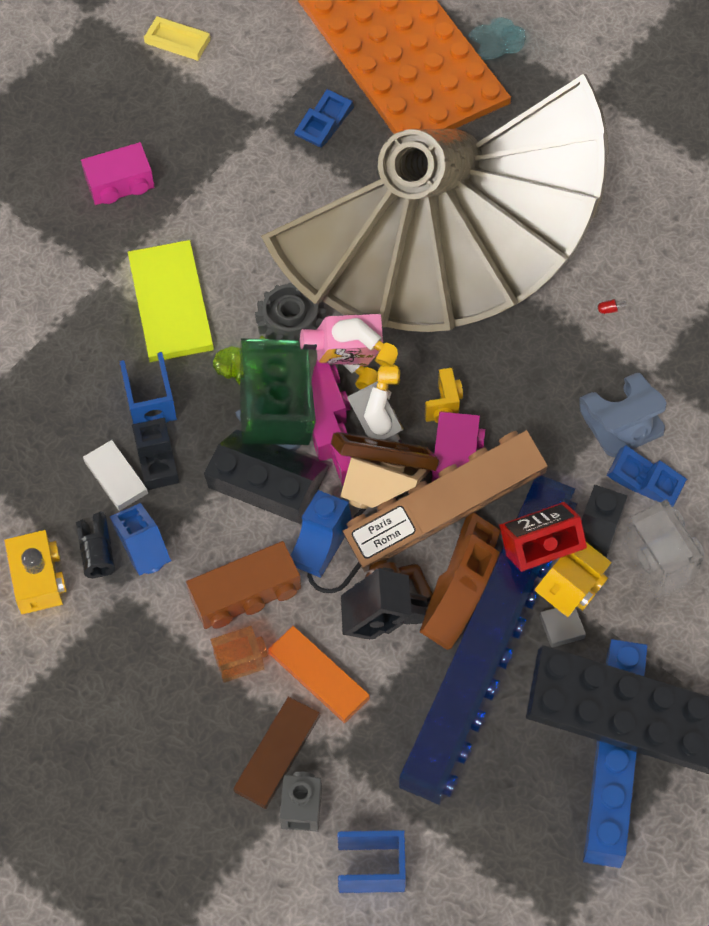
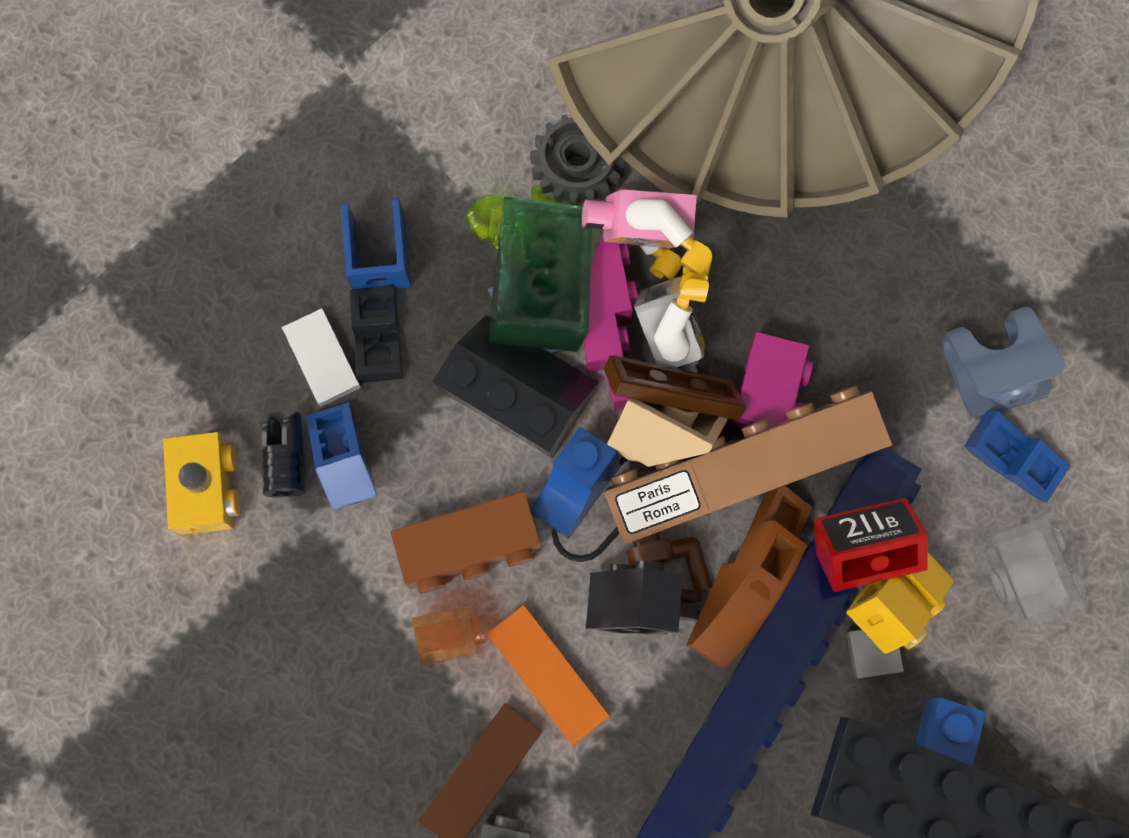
camera: 10 degrees right, 15 degrees up
(170, 301) = (422, 115): neon yellow tile -> none
(450, 393) = (774, 300): yellow bracket -> none
(602, 518) = (951, 514): black slope -> none
(610, 306) = (1004, 199): red piece -> none

